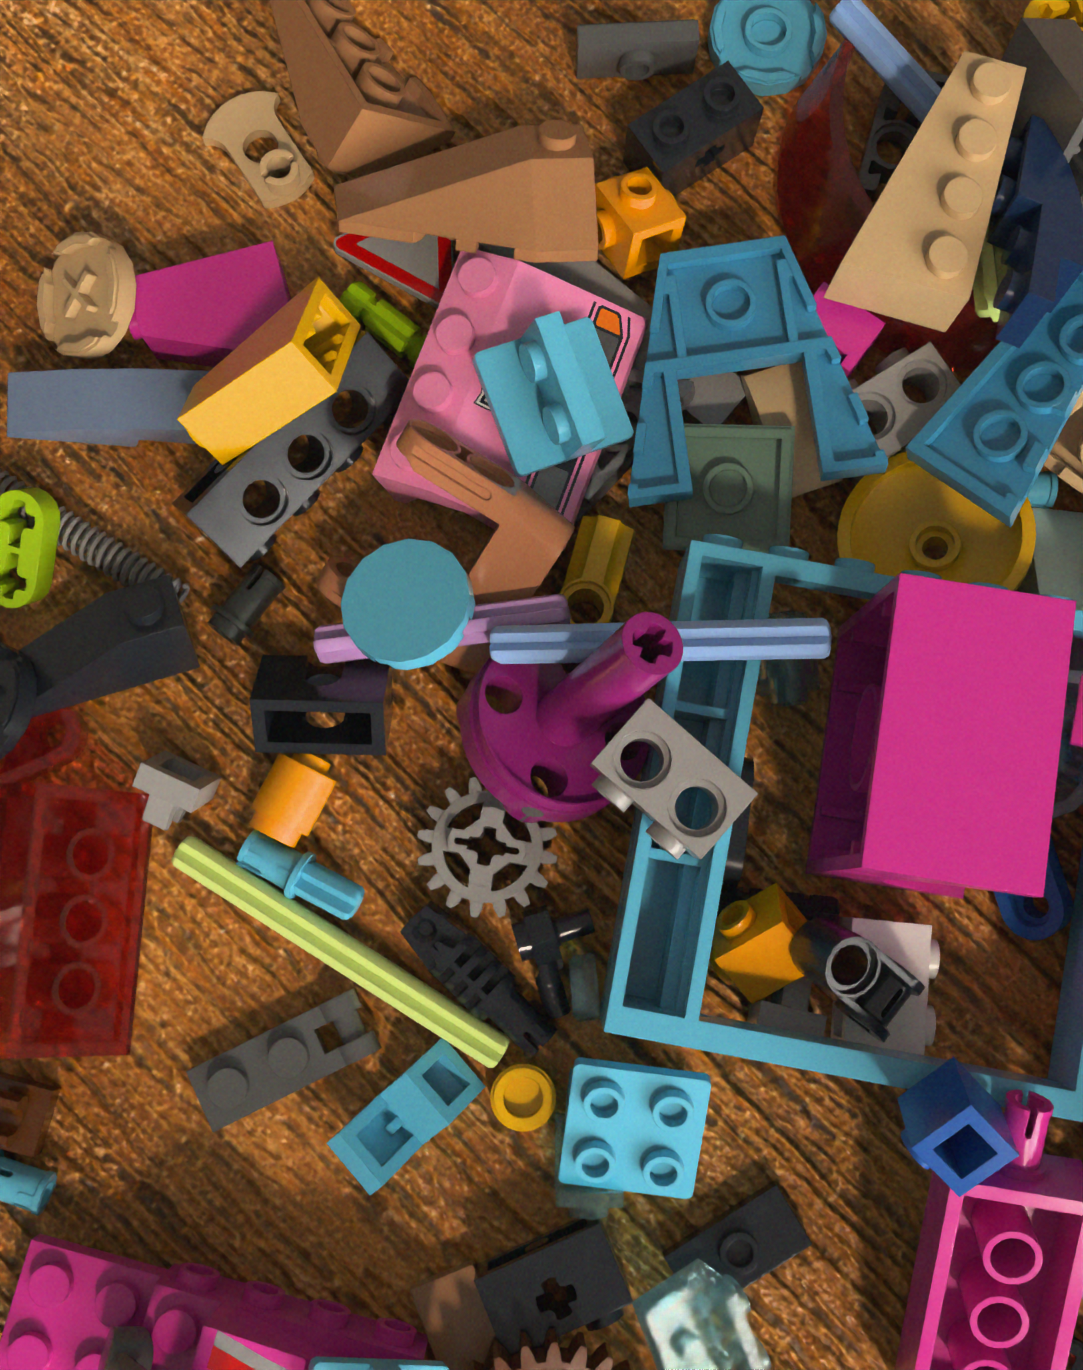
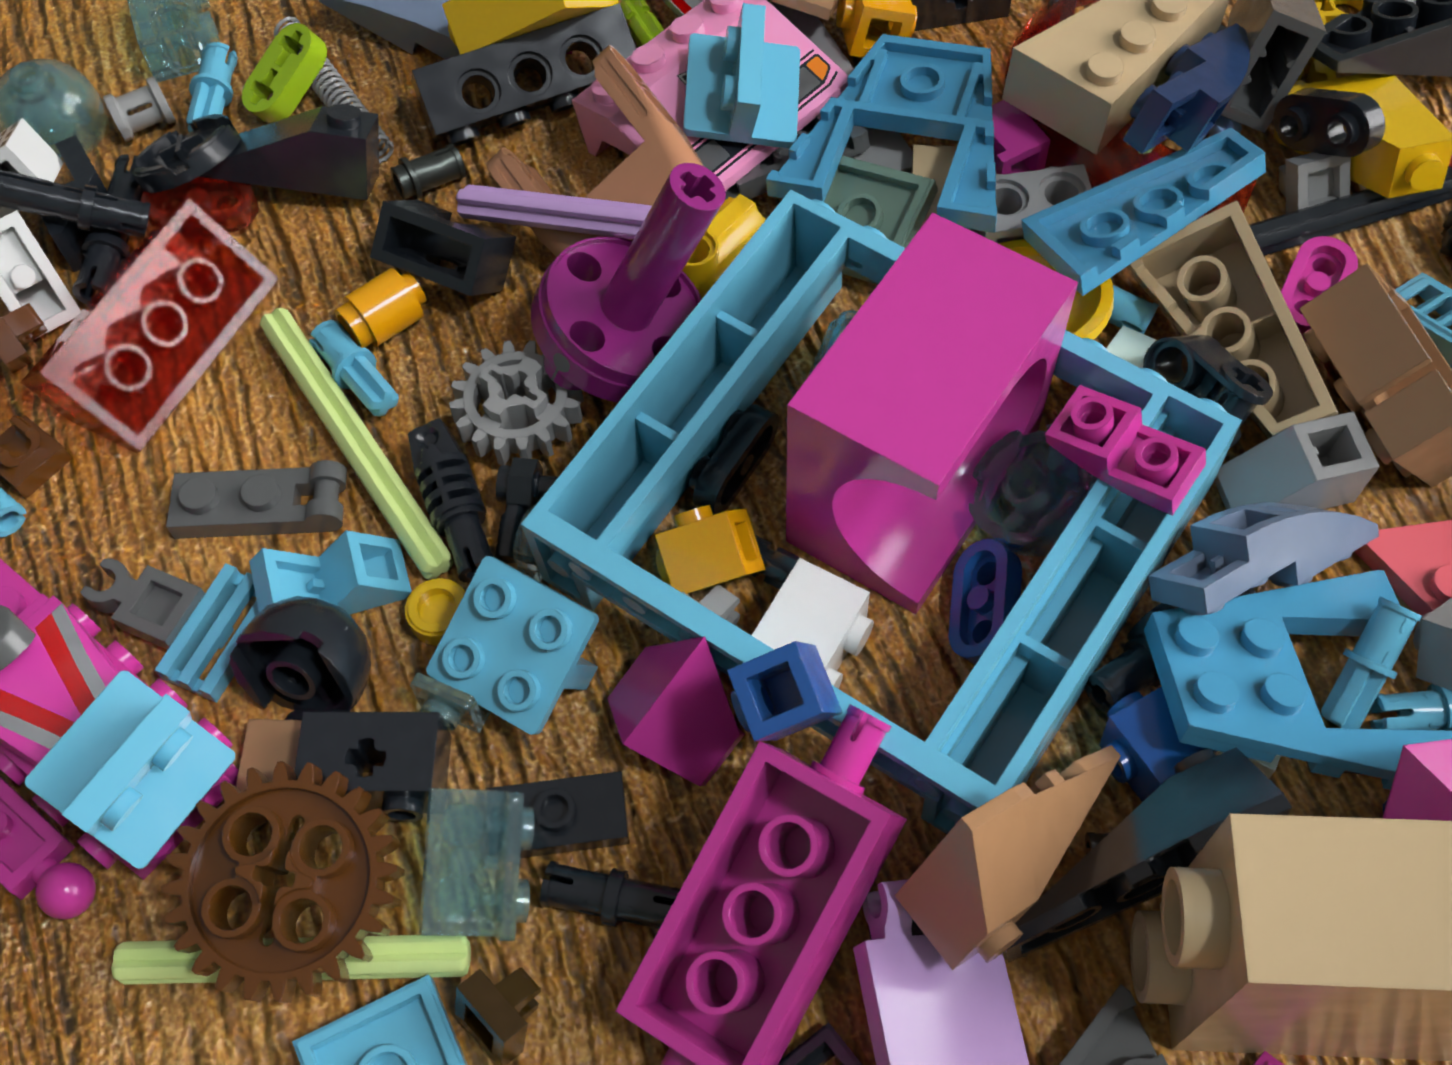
camera: 30 degrees right, 20 degrees down
(173, 788) = (292, 271): light grey tile -> none
(252, 1220) = (148, 607): none -> dark grey plate
(326, 1269) = (207, 632): none -> medium azure tile
(407, 604) = (543, 176): medium azure tile -> none
(439, 1213) = (303, 657): none -> black cylinder
(681, 765) = (684, 333): light grey brick -> none
(701, 640) = (745, 247): light blue axle -> none
(795, 1116) = (676, 710): none -> dark pink slope
(826, 1302) = (607, 895): none -> black pin
(860, 979) = (775, 587): black piece -> none

